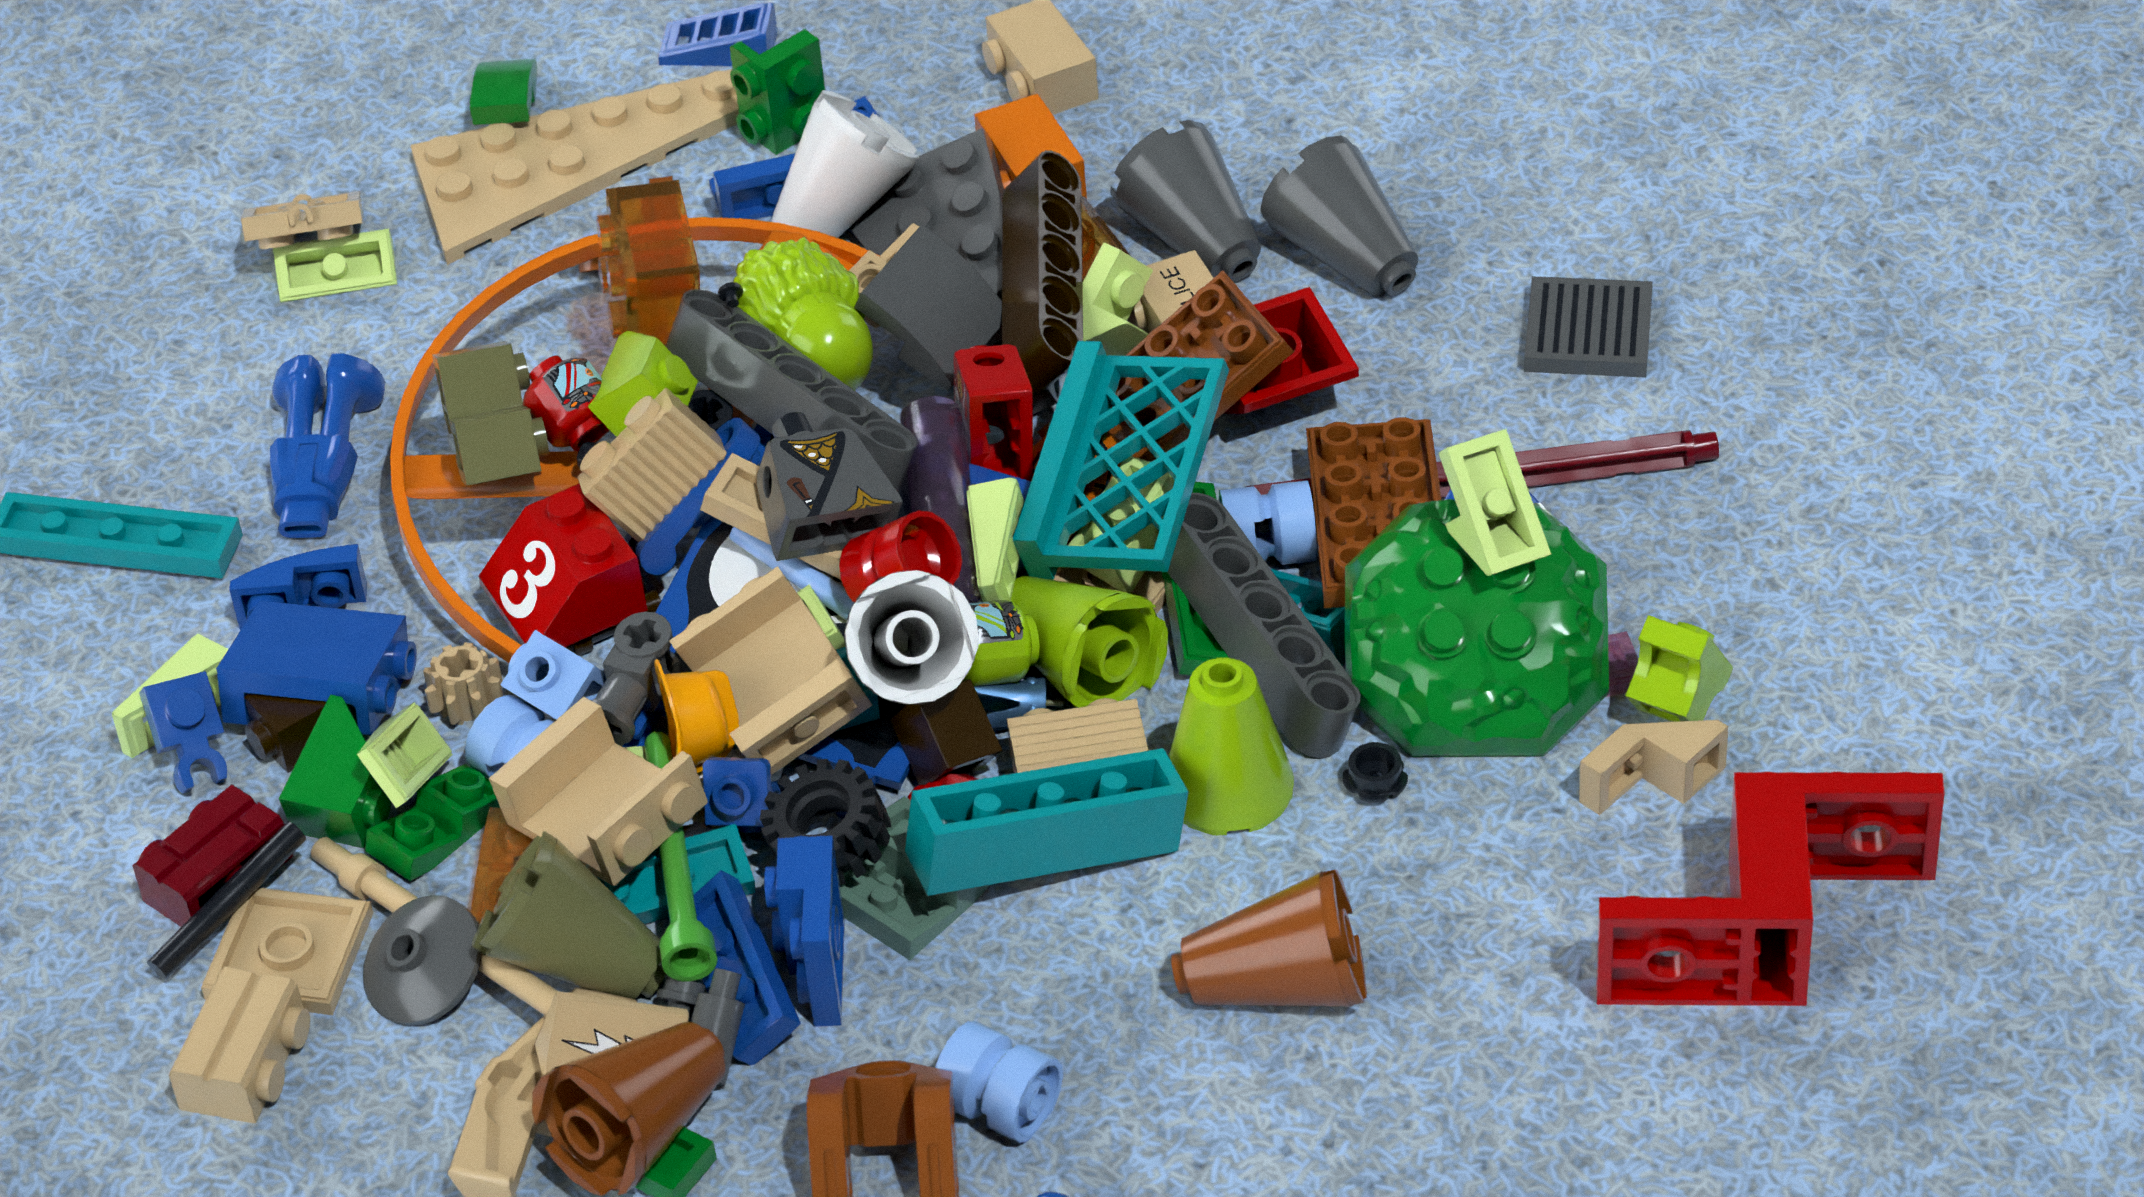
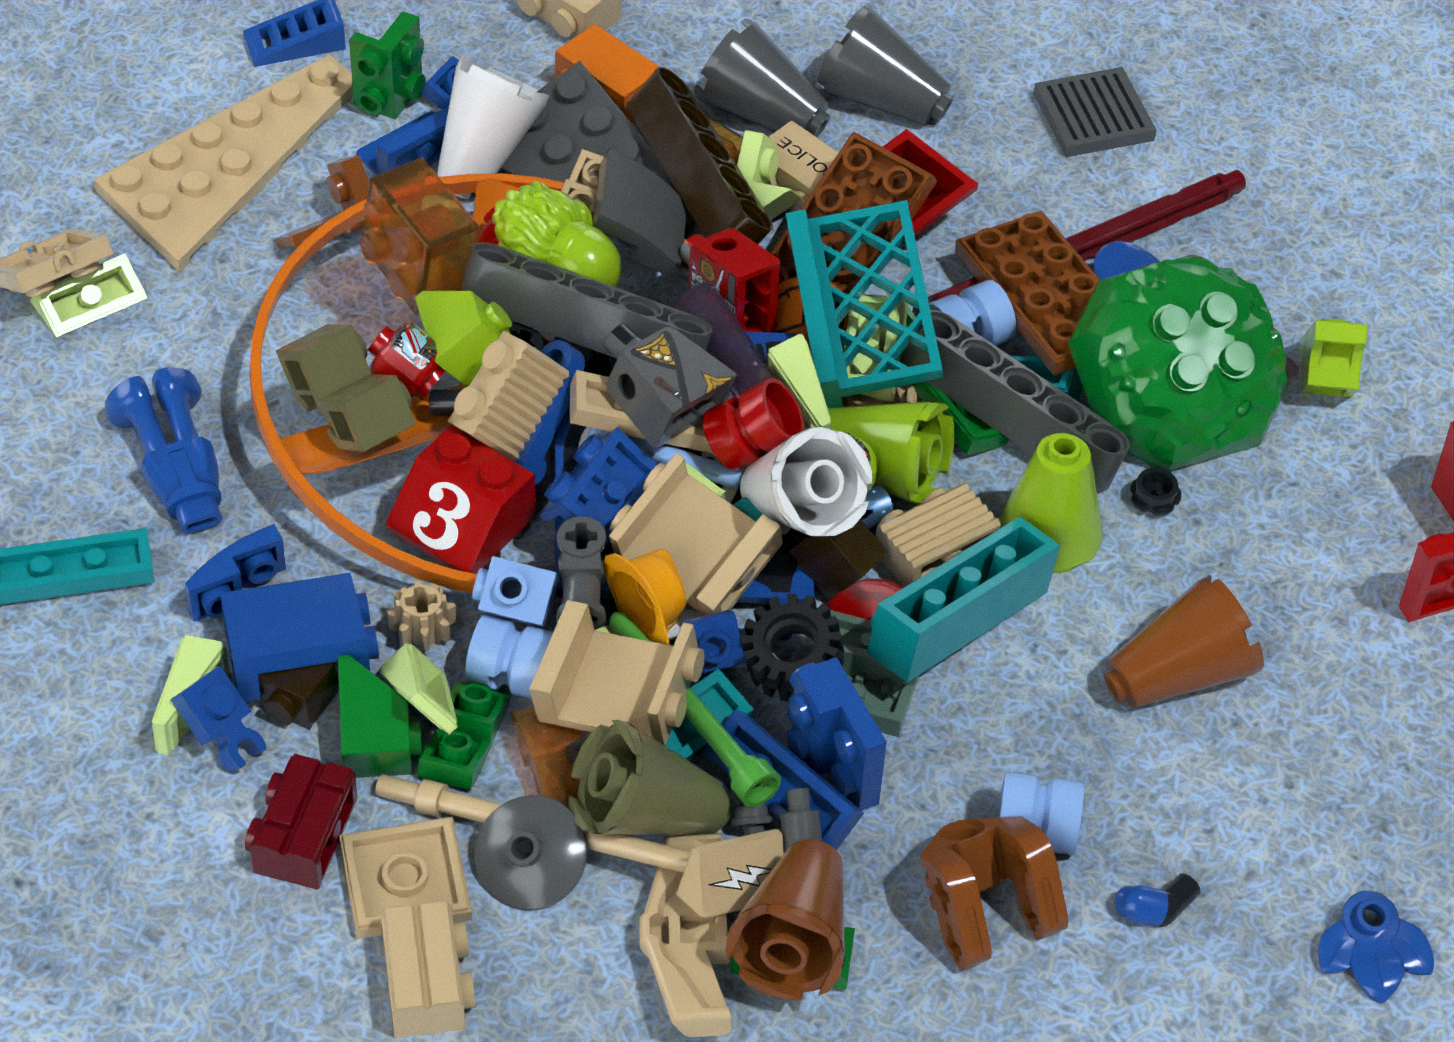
camera: 30 degrees left, 5 degrees up
(226, 900) = (338, 852): black bar -> none
(503, 91) = (149, 116): green slope -> none
(705, 583) = (602, 482): none -> blue bracket
(730, 293) = (505, 240): black piece -> none
(1495, 507) = (1207, 270): yellowish green slope -> none
(1667, 754) = (1351, 423): tan slope -> none

